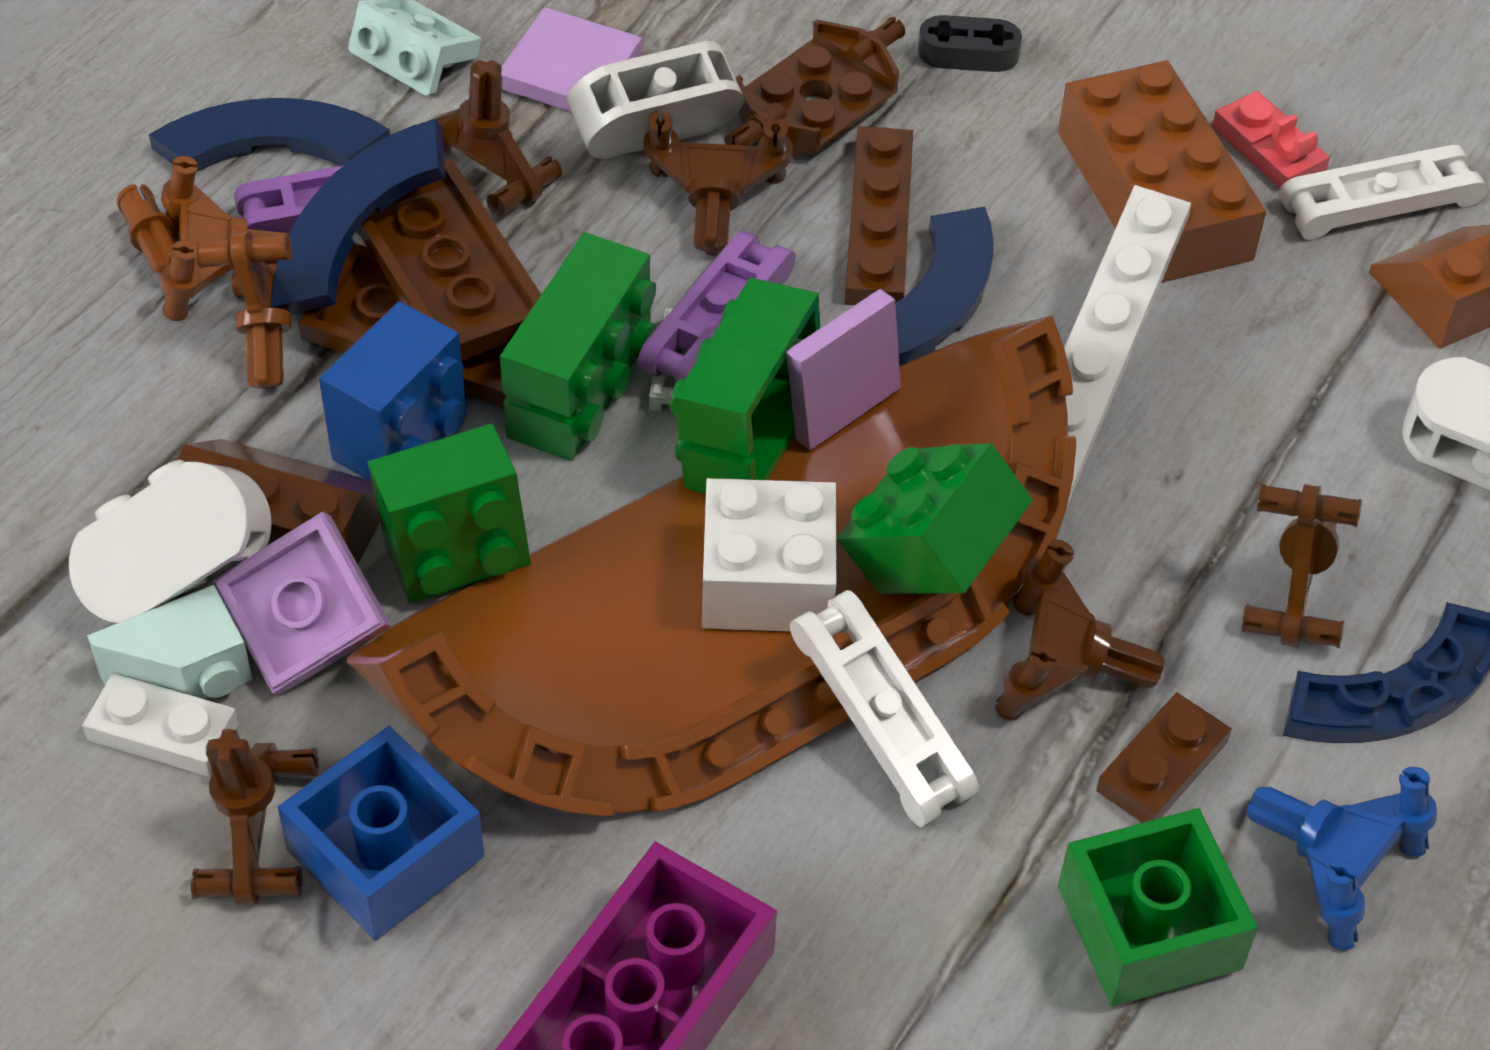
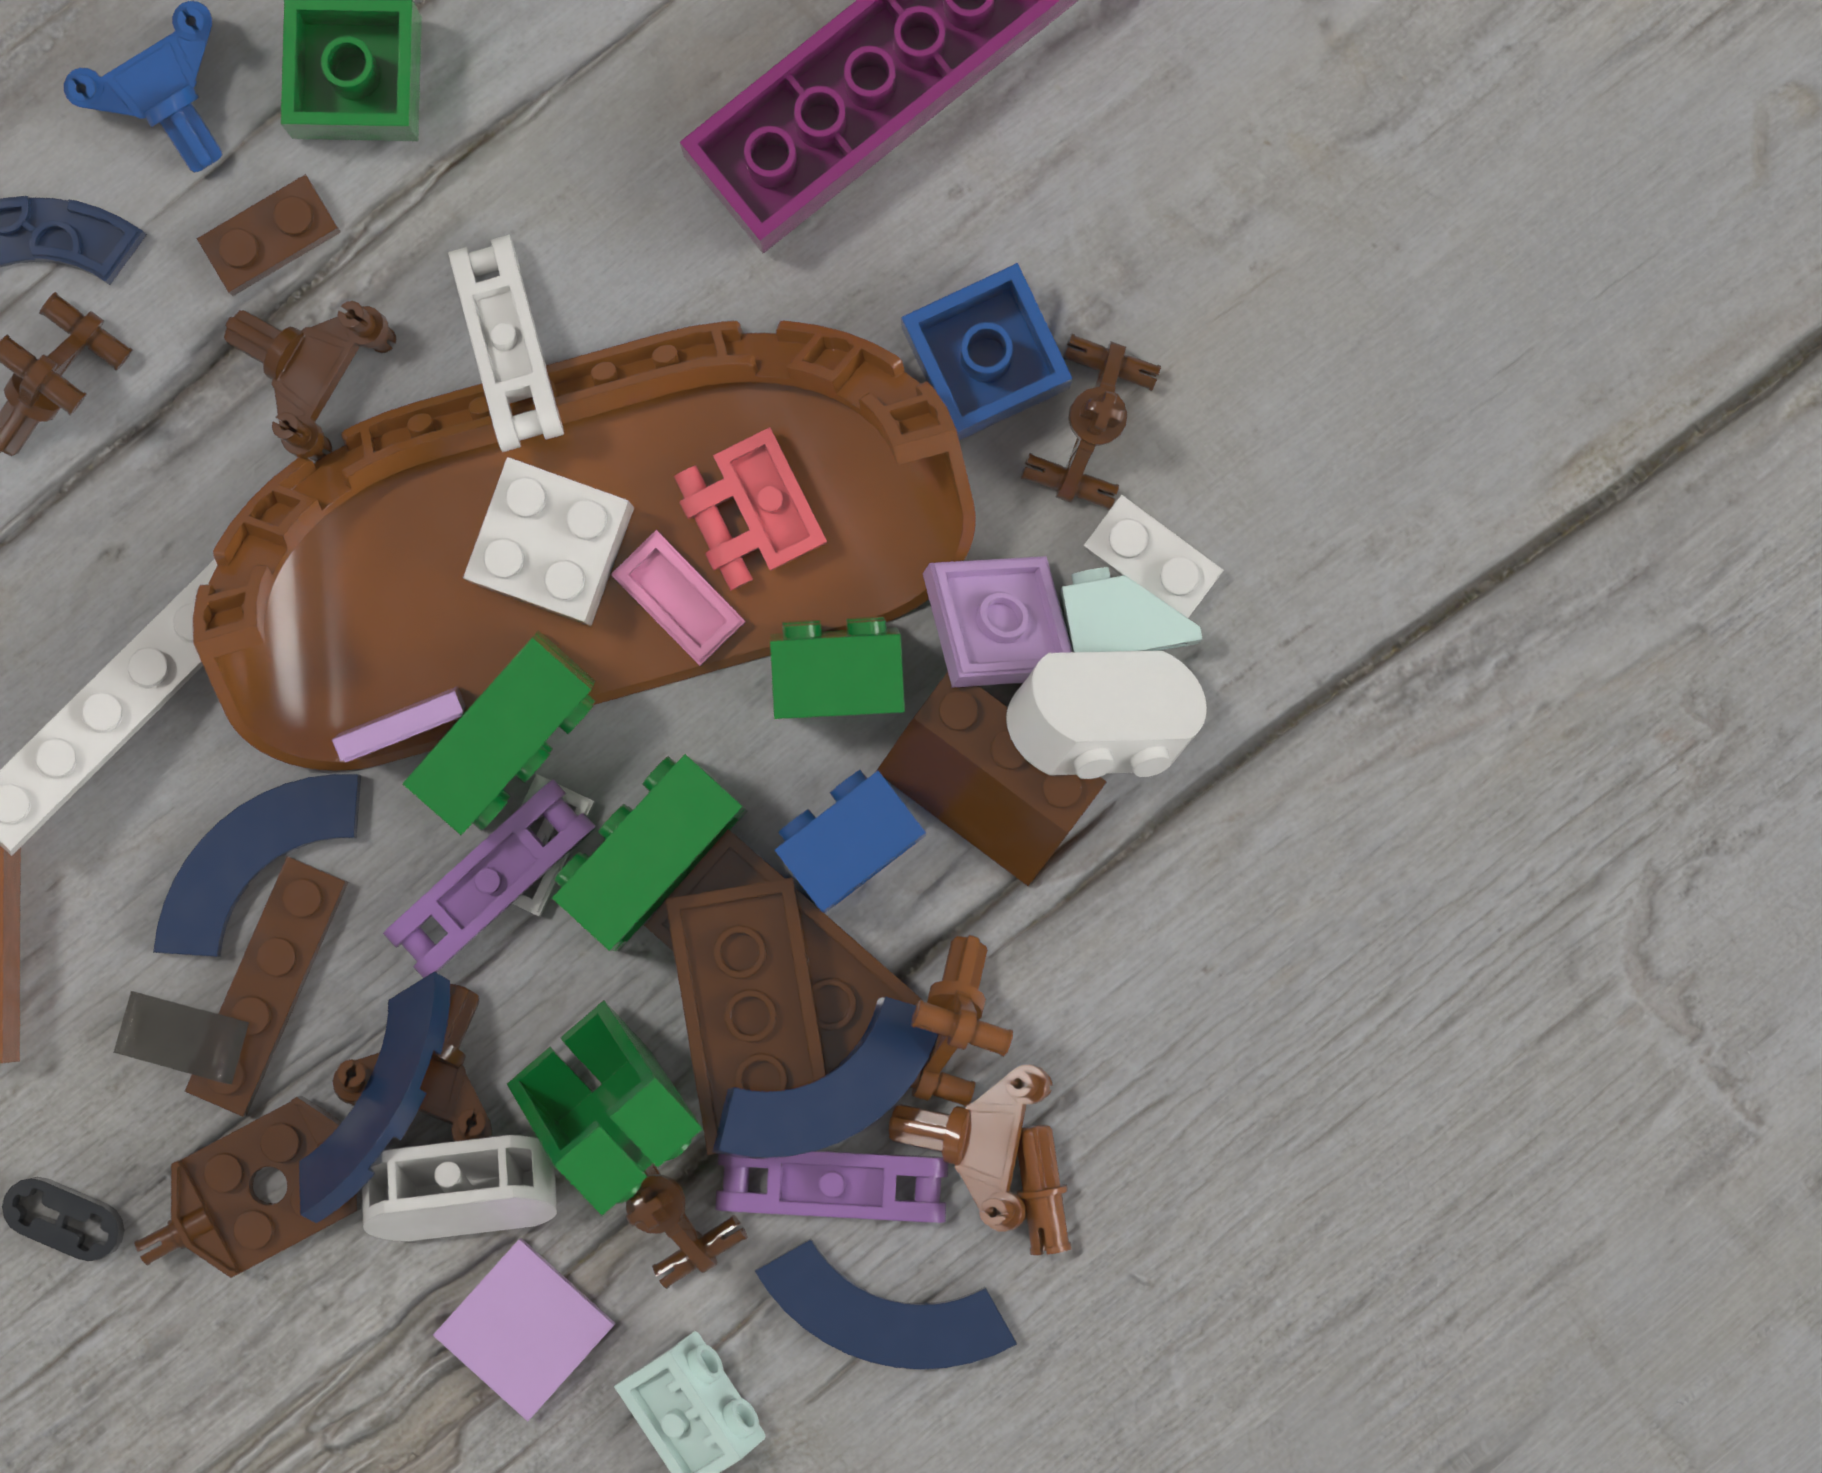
camera: 155 degrees left, 35 degrees up
(549, 148) = (607, 1134): none -> green piece
(571, 654) = (768, 499): none -> coral plate
(630, 563) = (678, 598): none -> bright pink tile
(736, 120) = (388, 1103): none -> dark blue tile
(932, 154) = (181, 1037): none -> clear smoke tile
(934, 519) = (386, 504): green brick -> none

